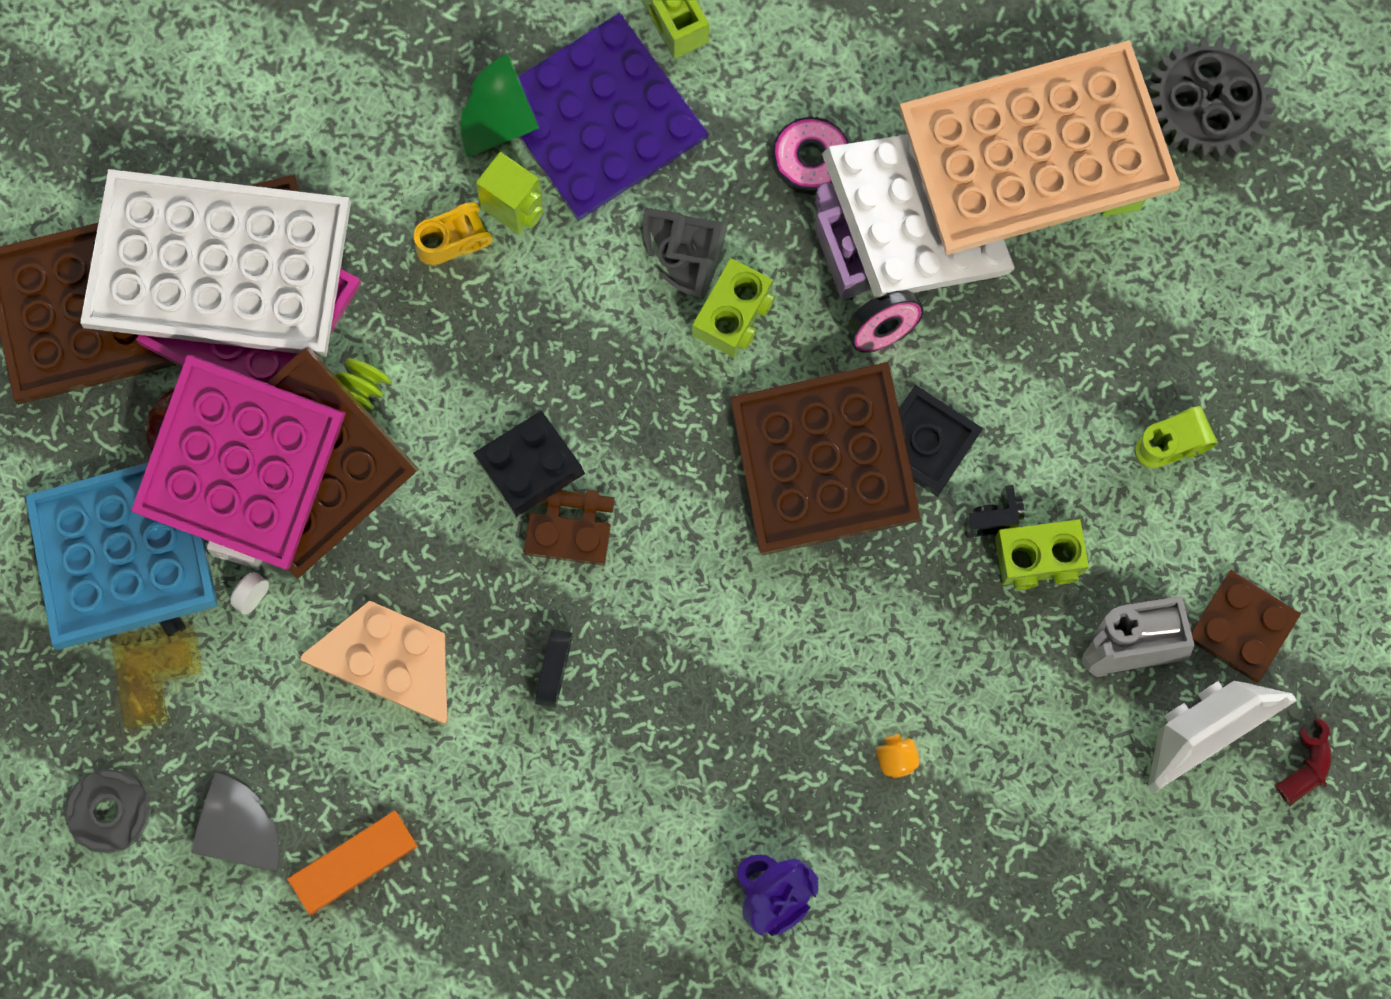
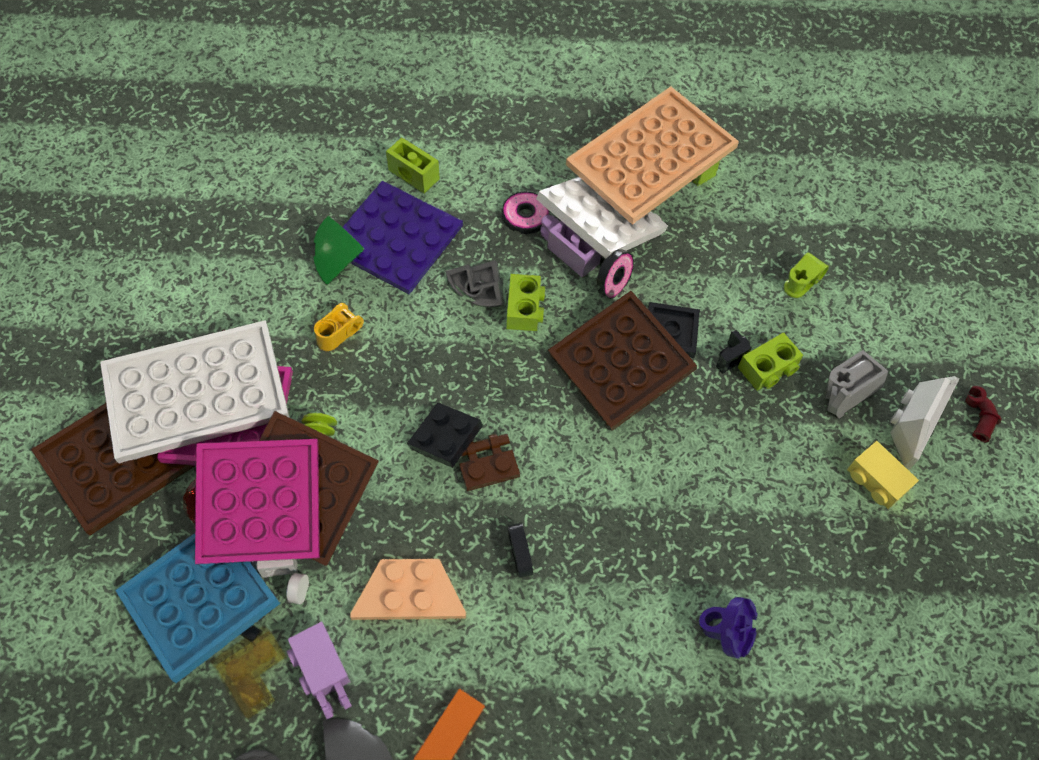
camera: 25 degrees left, 15 degrees down
(237, 706) = (320, 666): none -> lavender hinge
(510, 194) = (364, 287): lime brick -> none
(898, 756) = (754, 512): light orange piece -> none
(1100, 785) = (882, 475): none -> light yellow brick
(1231, 74) = (726, 107): dark grey gear -> none
(1244, 626) = (902, 355): reddish brown plate -> none

